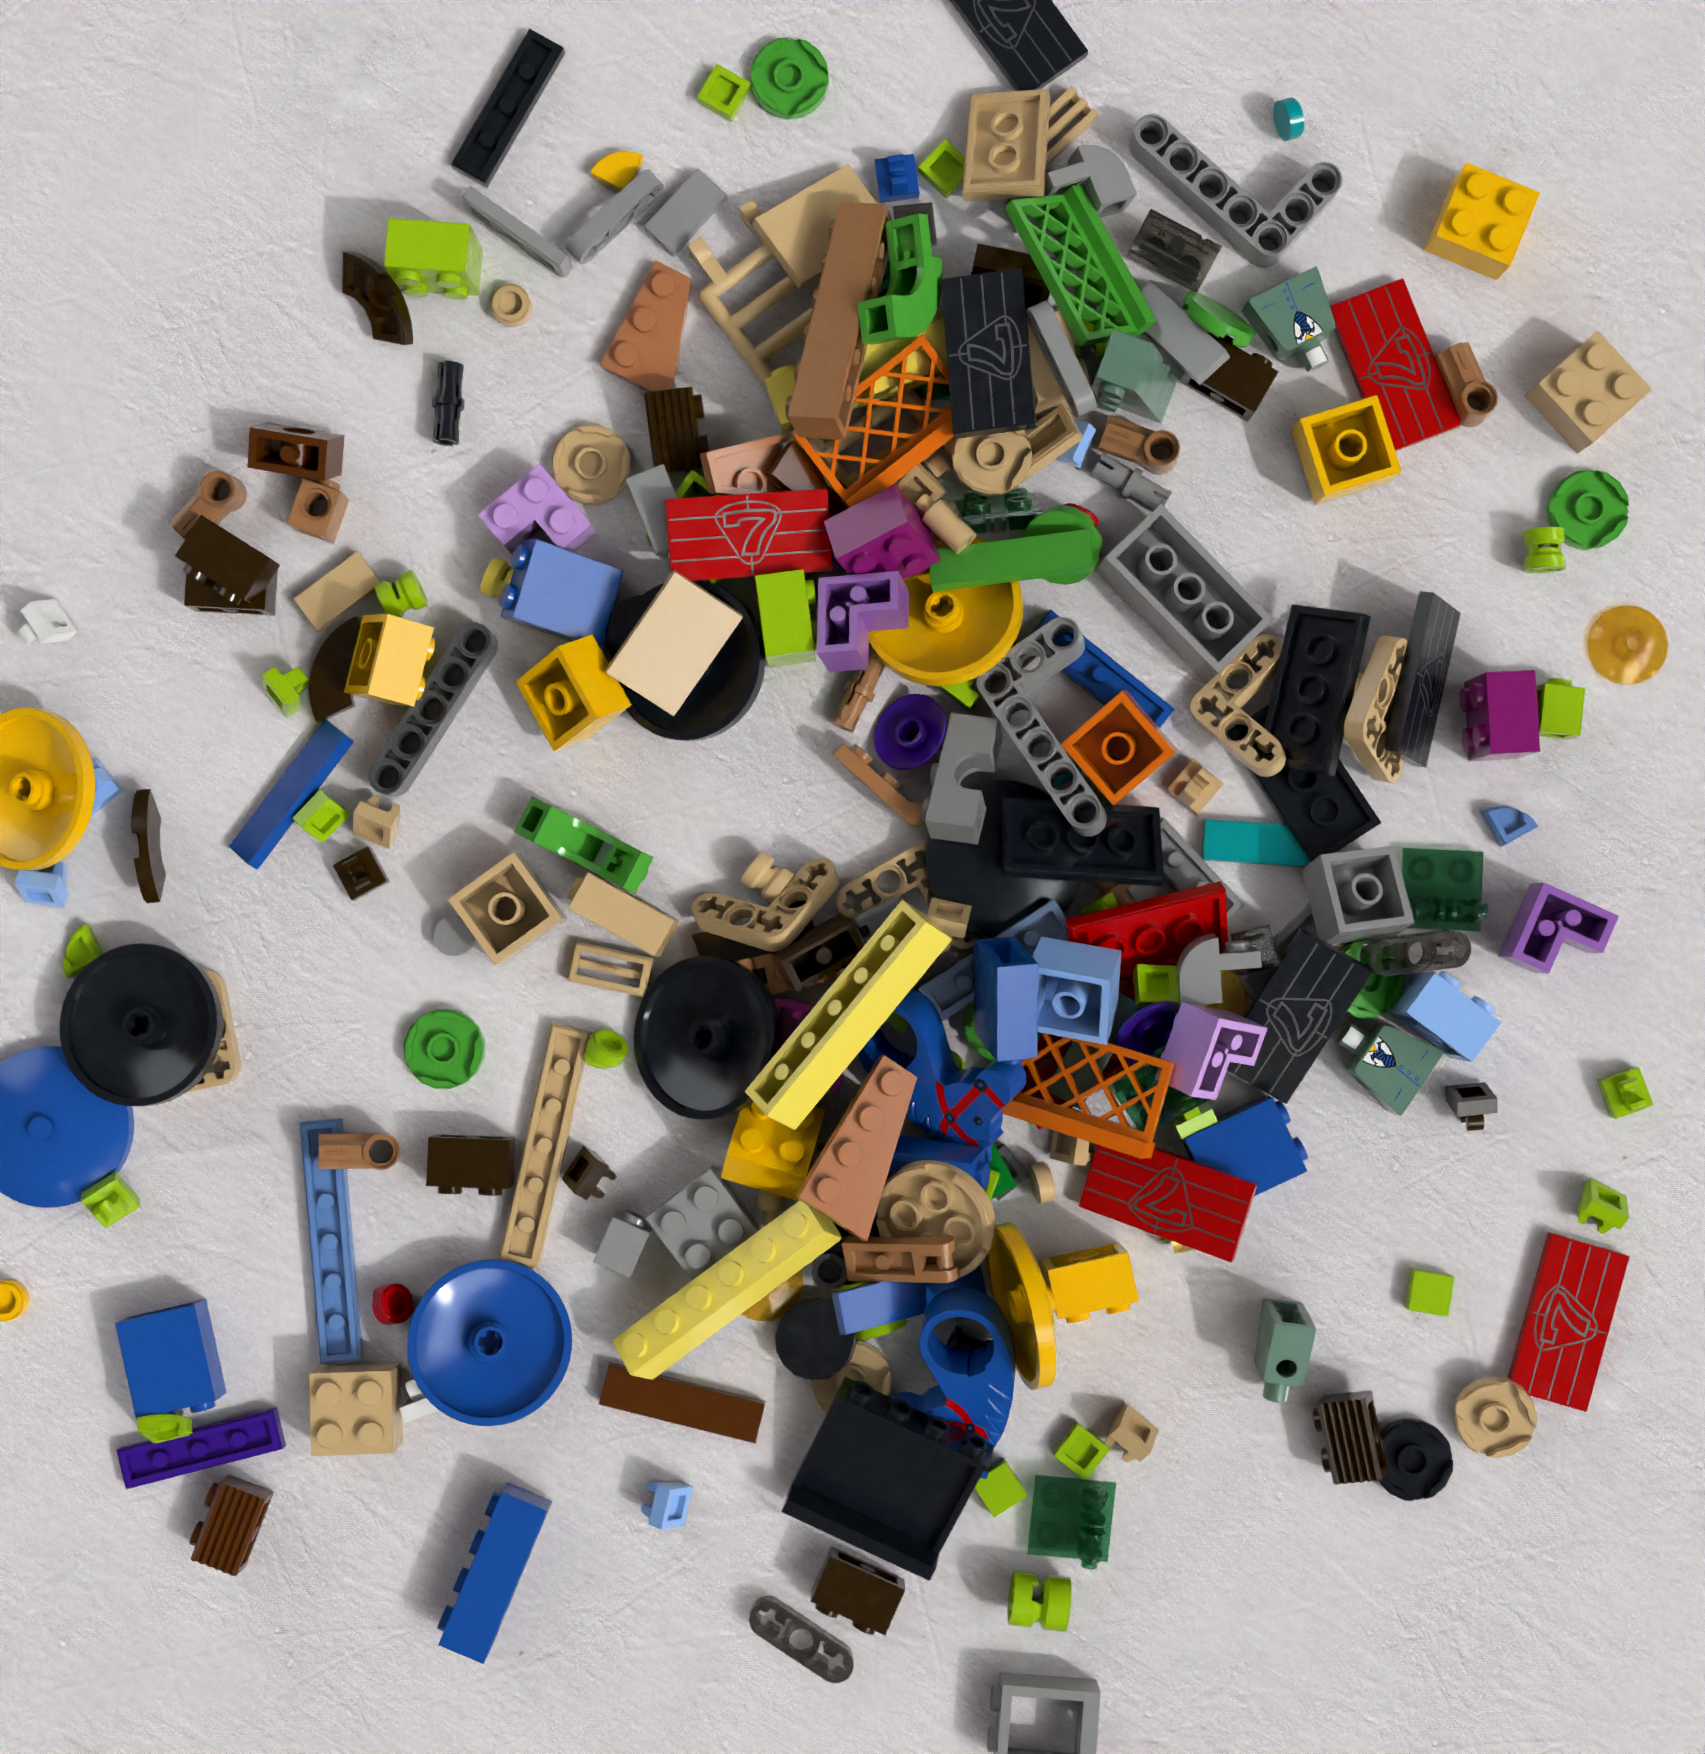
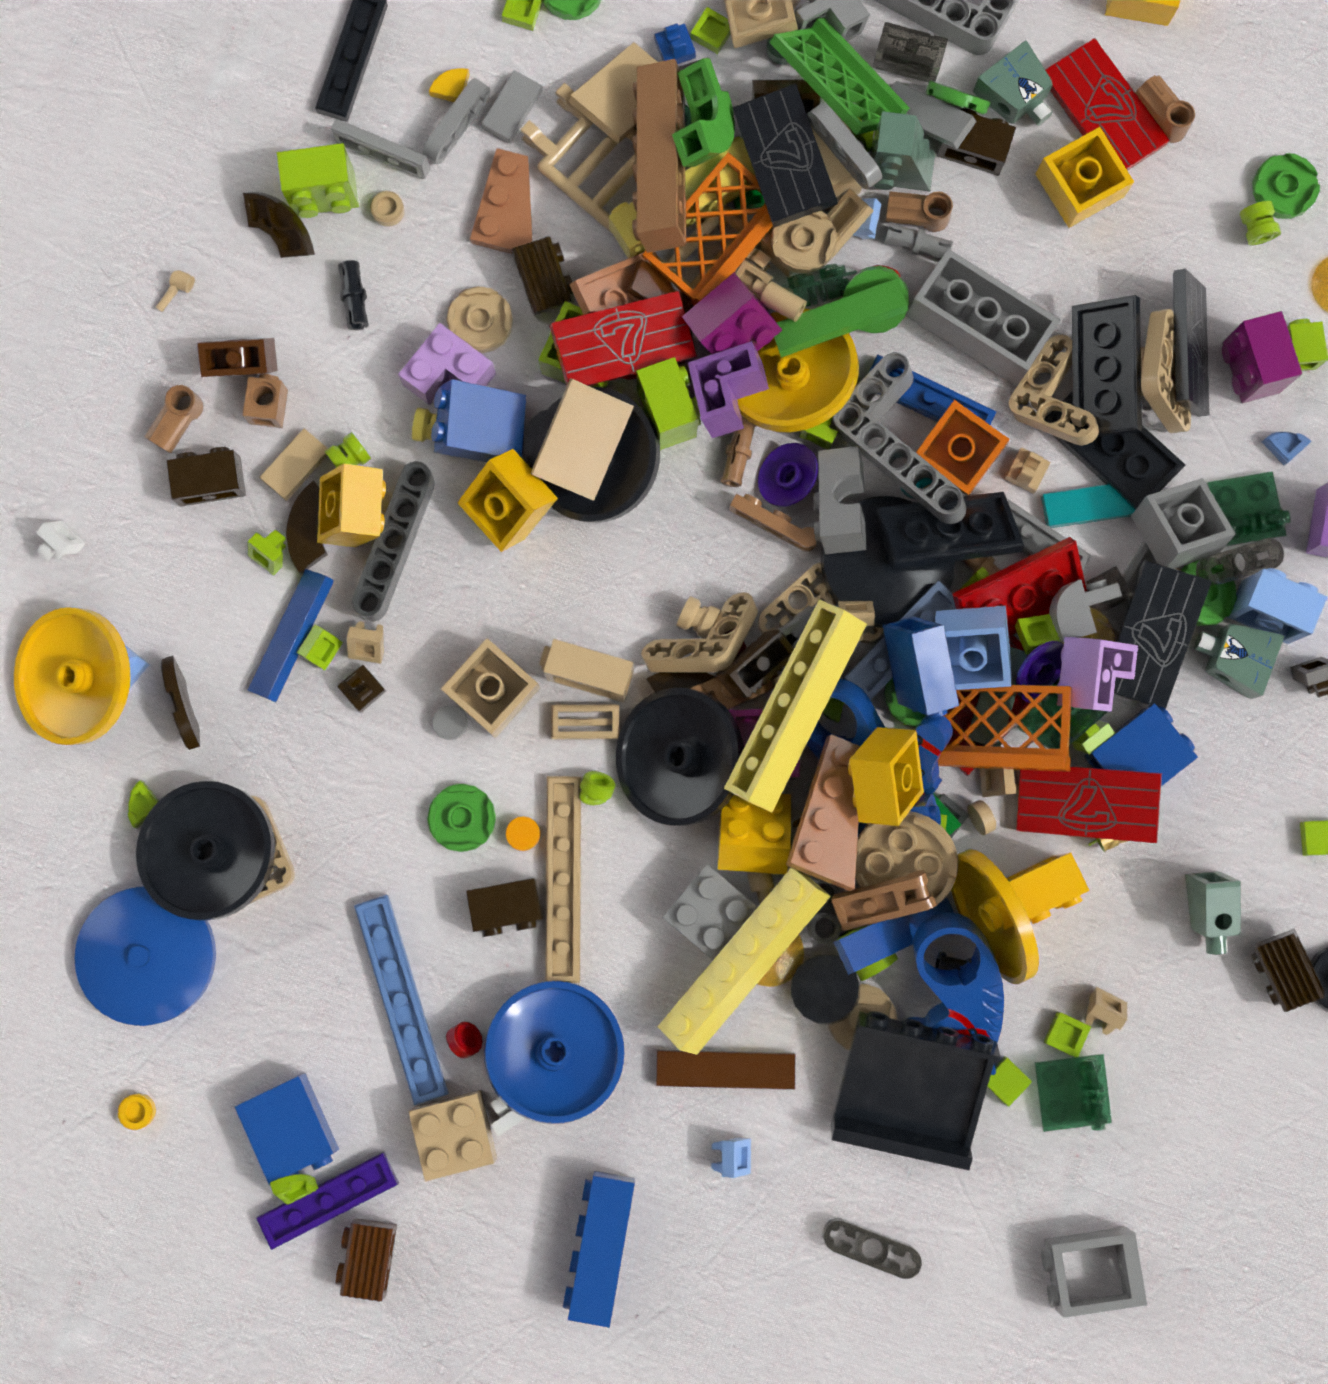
camera: 15 degrees left, 5 degrees down
(43, 887) = (99, 756): light blue tile -> none
(110, 1200) = (208, 1005): lime tile -> none
(226, 560) = (200, 453): dark brown brick -> none
(245, 341) = (178, 281): none -> tan hand
(352, 1151) = (405, 916): medium nougat piece -> none
(510, 1082) = (523, 833): none -> light orange tile
(583, 844) = (541, 623): bright green arch -> none
(586, 1173) = (603, 893): dark brown tile -> none
(623, 1243) = (647, 944): light grey brick -> none
(649, 492) = (534, 325): light grey tile -> none
(857, 1592) = (910, 1196): dark brown brick -> none
(934, 1120) = (886, 776): none -> yellow brick
(1053, 1604) = (1064, 1168): lime wheel -> none
(1588, 392) = (1263, 93): tan brick -> none

